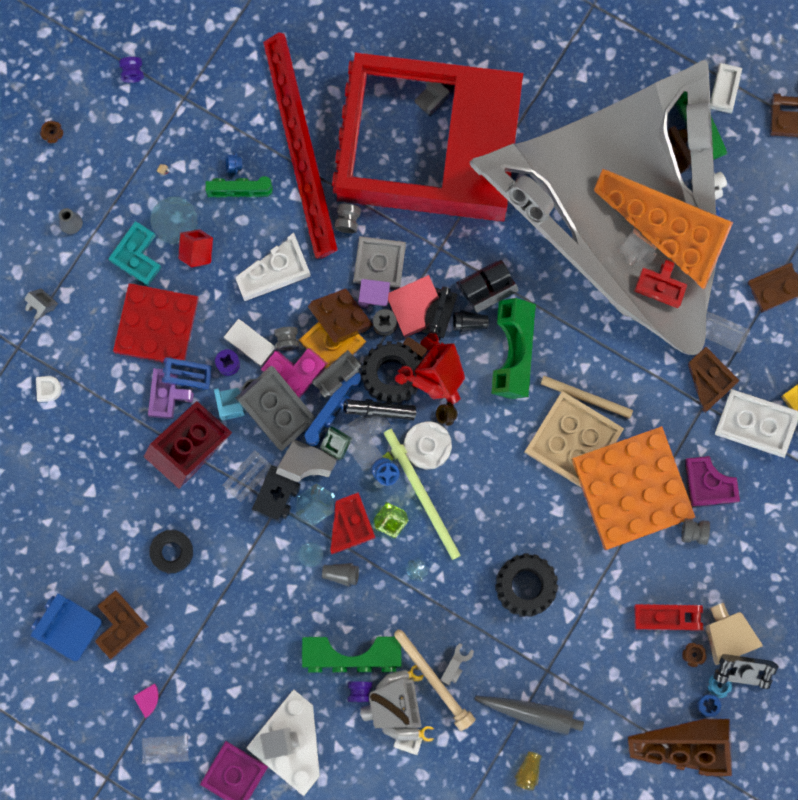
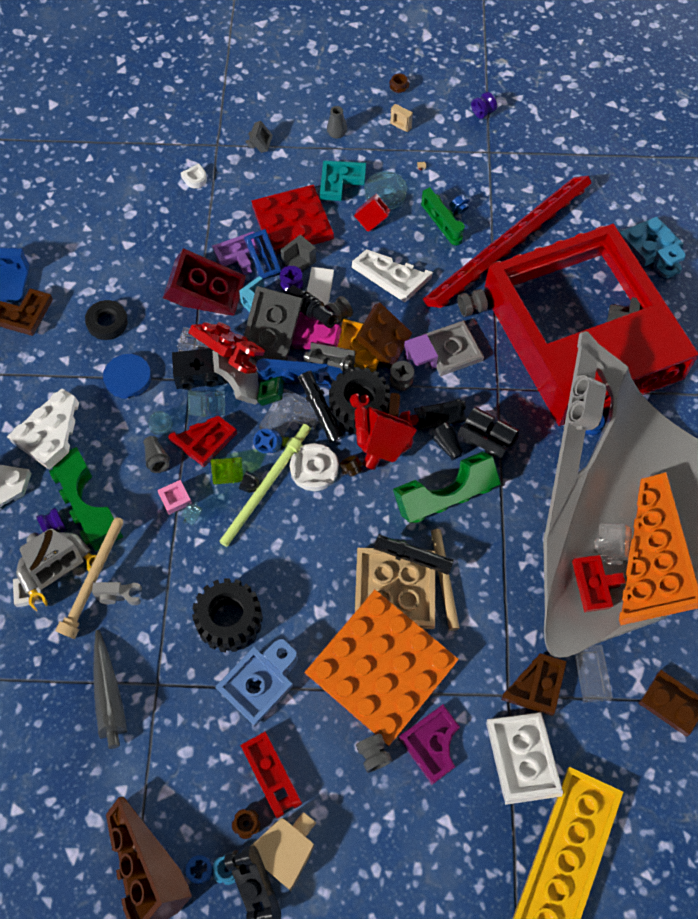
camera: 60 degrees right, 15 degrees down
(99, 156) = (401, 117): none -> tan tile
(205, 341) = (299, 253): none -> dark grey panel
(243, 560) = (127, 376): none -> blue tile
(266, 654) = (48, 429): none -> white plate
(279, 360) = (313, 307): none -> black hinge
(279, 455) = (228, 344): none -> red plate
(392, 23) = (661, 252): none -> dark azure plate
(392, 576) = (174, 497): none -> bright pink plate
(411, 304) = (432, 387): coral tile -> none
(413, 507) = (249, 482): none -> black hinge
(528, 773) = (42, 717): clear yellow cone -> none
(561, 408) = (410, 553): none -> black pin
(592, 576) = (265, 668): none -> medium blue plate

